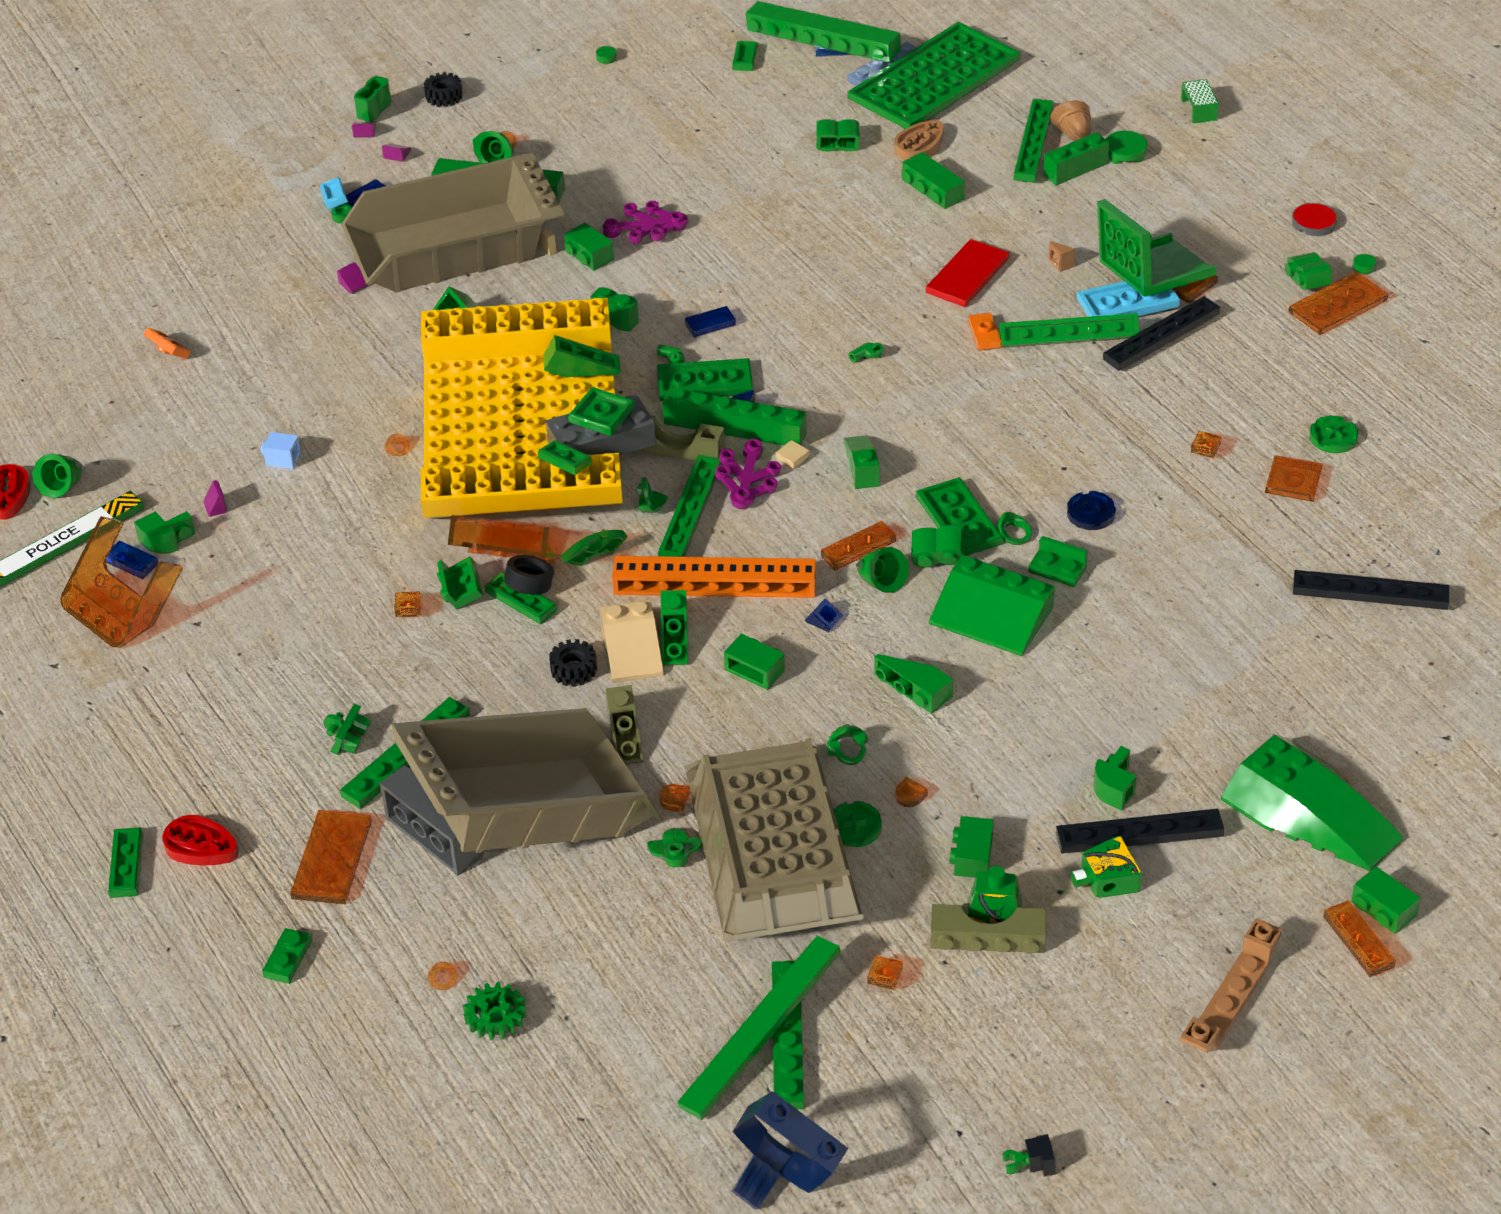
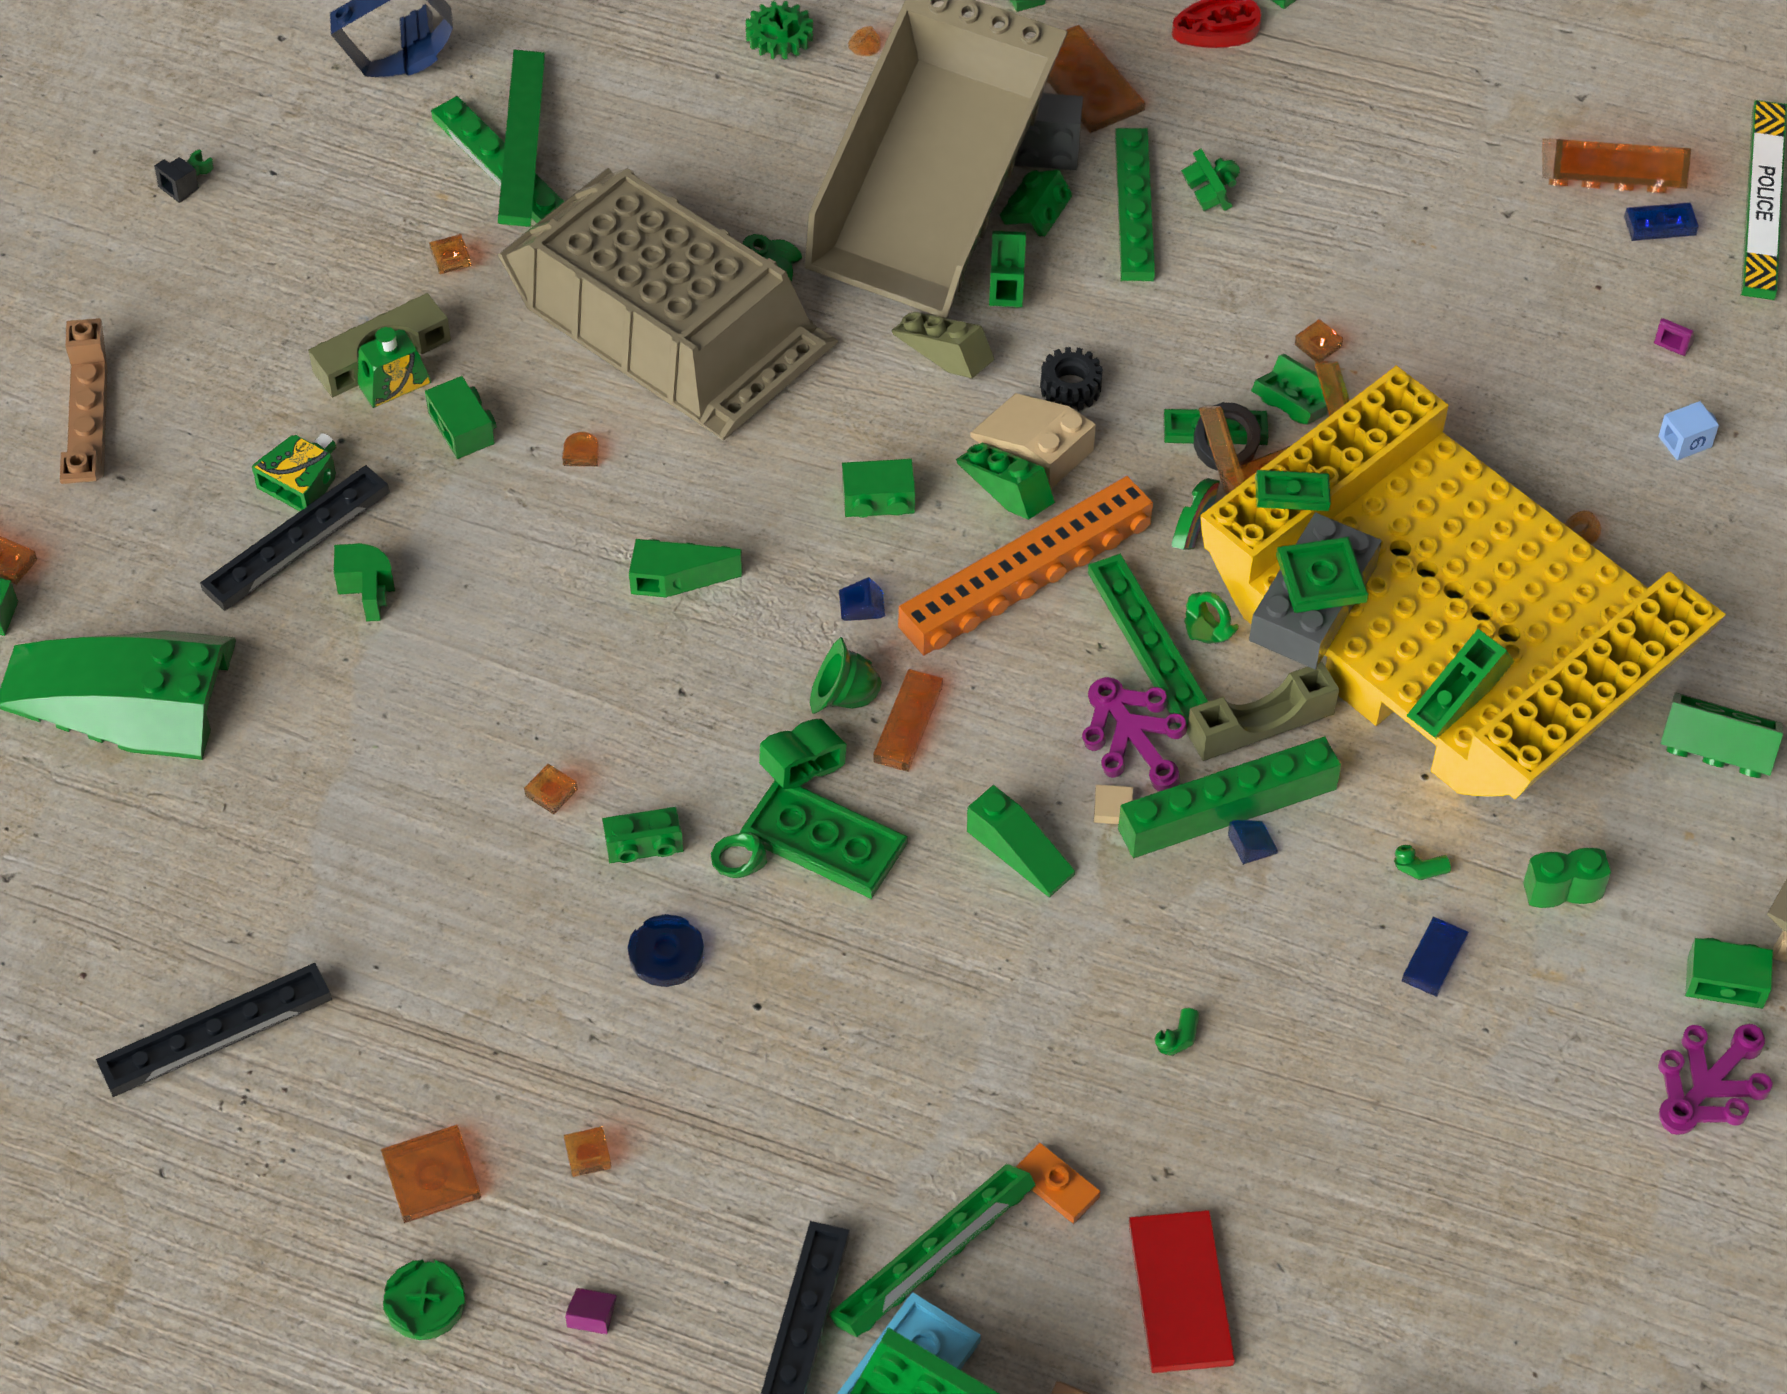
camera: 140 degrees right, 10 degrees up
(162, 535) = (1671, 259): green brick -> none
(674, 797) = (820, 307): clear orange tile -> none
(707, 377) = (1339, 856): green tile -> none
(847, 730) = (697, 458): green piece -> none
(858, 823) = (608, 390): green tile -> none
(993, 605) = (673, 723): green slope -> none
(1092, 608) = (550, 789): none -> clear orange plate
(1254, 389) = (590, 1311): none -> magenta slope

